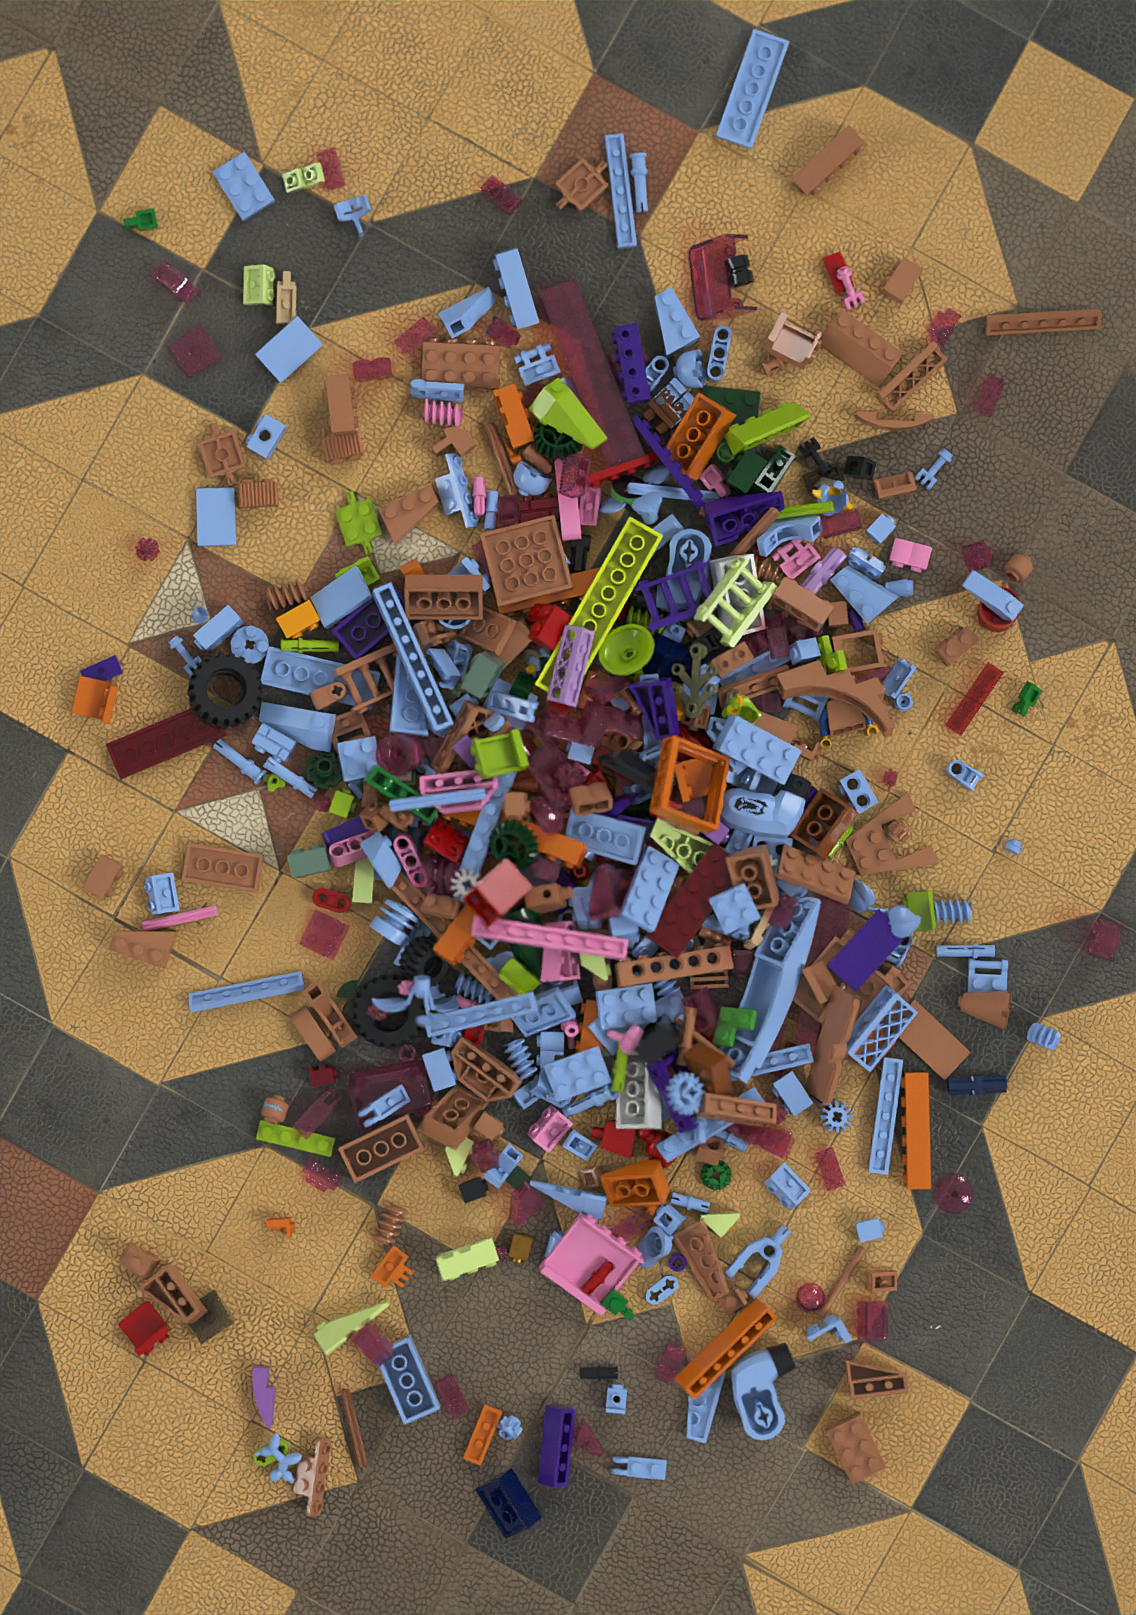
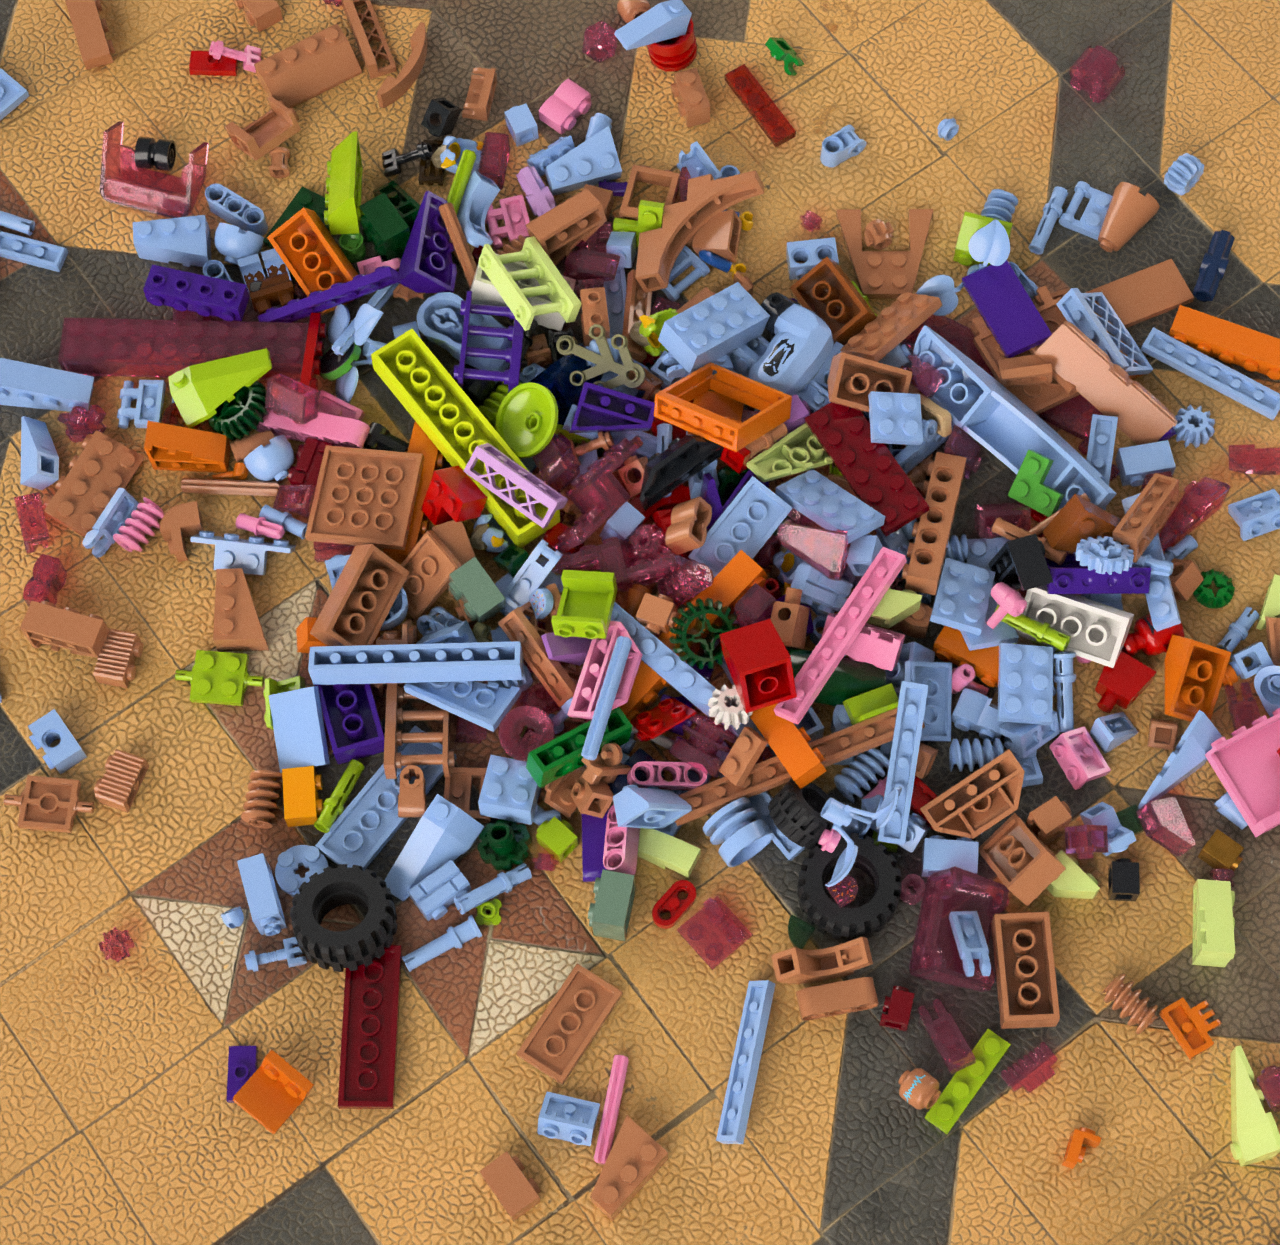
camera: 65 degrees left, 20 degrees down
(216, 517) = (121, 845): light blue tile -> none
(725, 978) = (971, 485): nougat tile -> none
(944, 456) = (473, 35): light blue hinge -> none

